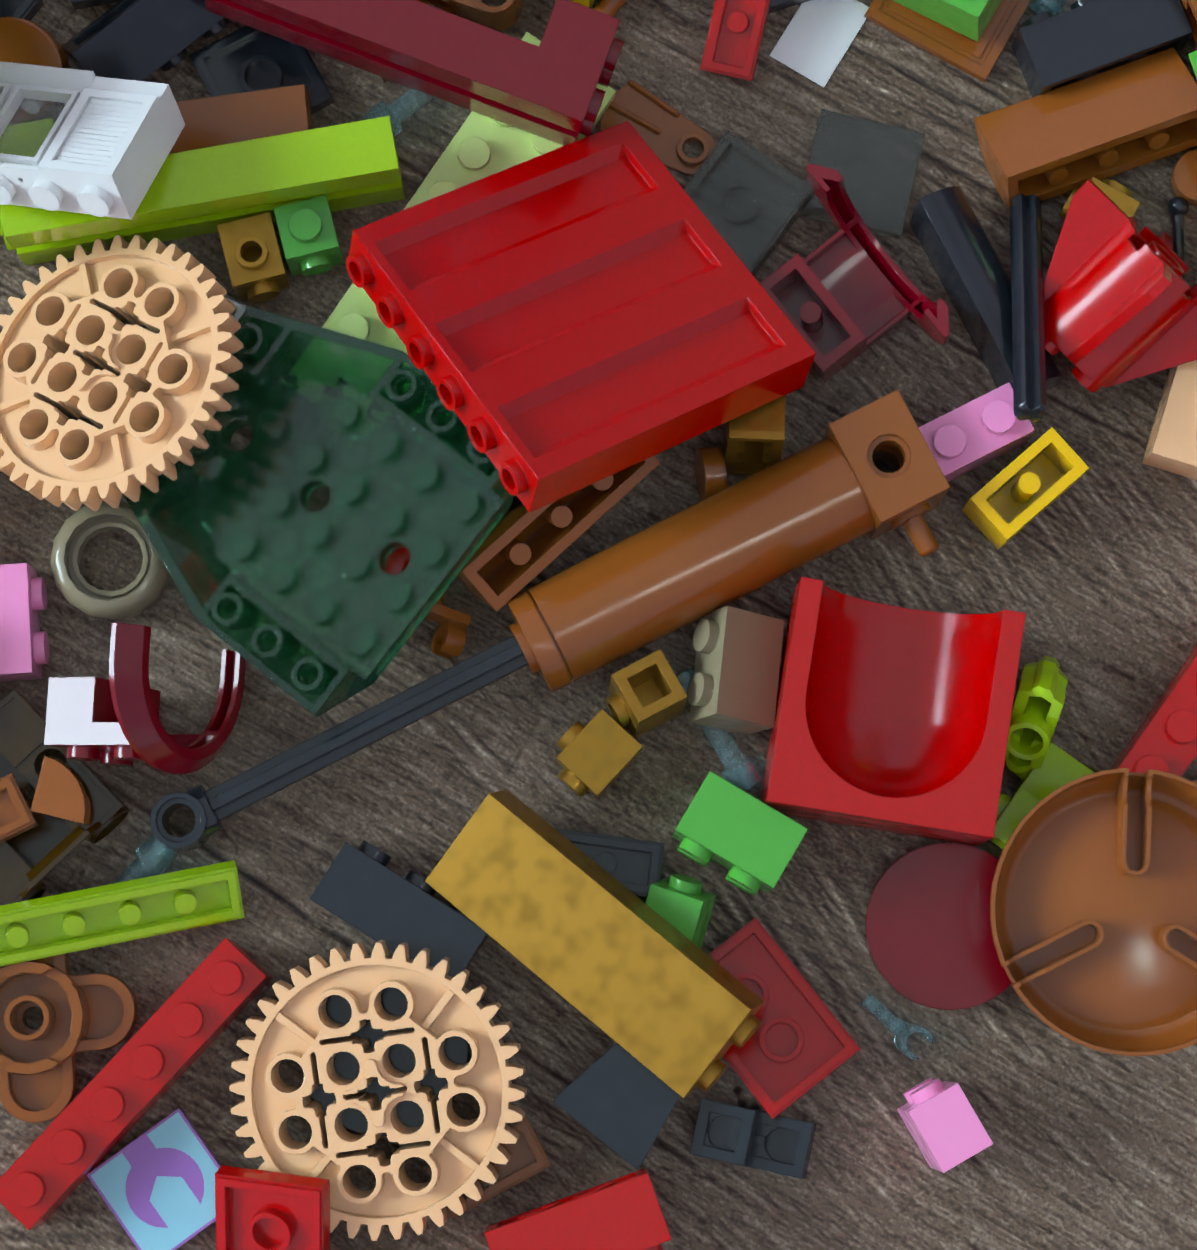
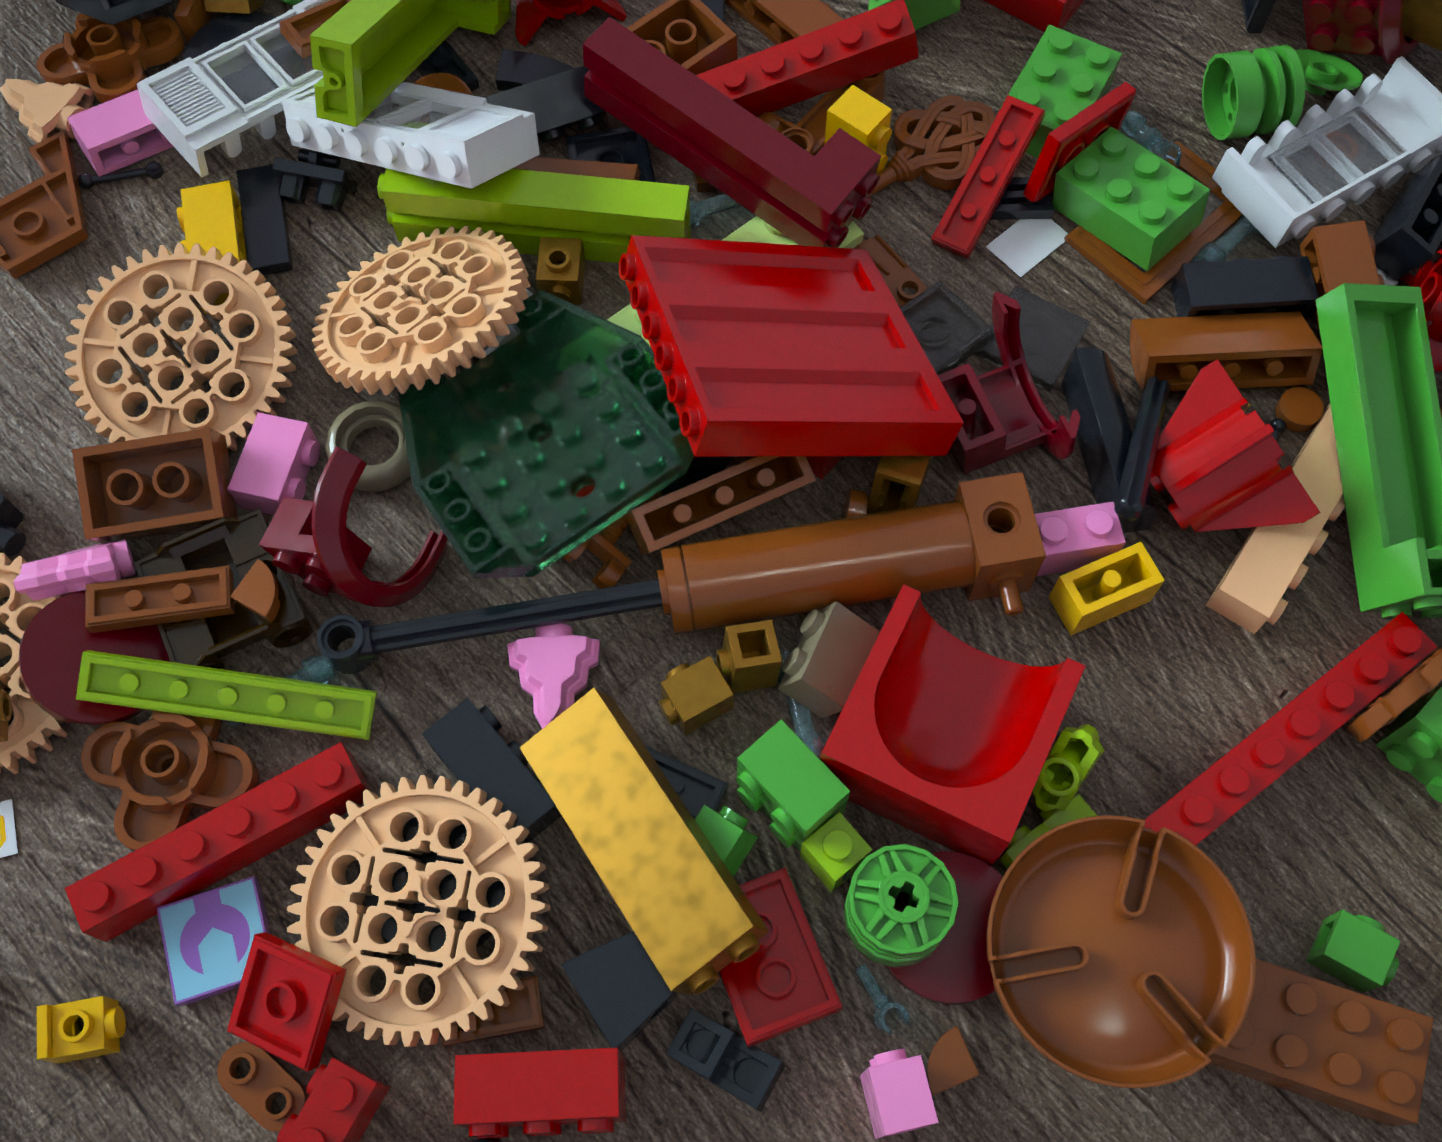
camera: 20 degrees right, 15 degrees down
(309, 236) = (601, 266): bright green brick -> none
(427, 775) = (553, 667): none -> bright pink rock
(806, 887) = (834, 851): none -> lime brick
(866, 949) = (893, 935): none -> bright green wheel
(986, 1068) = (949, 1062): none -> dark orange tile

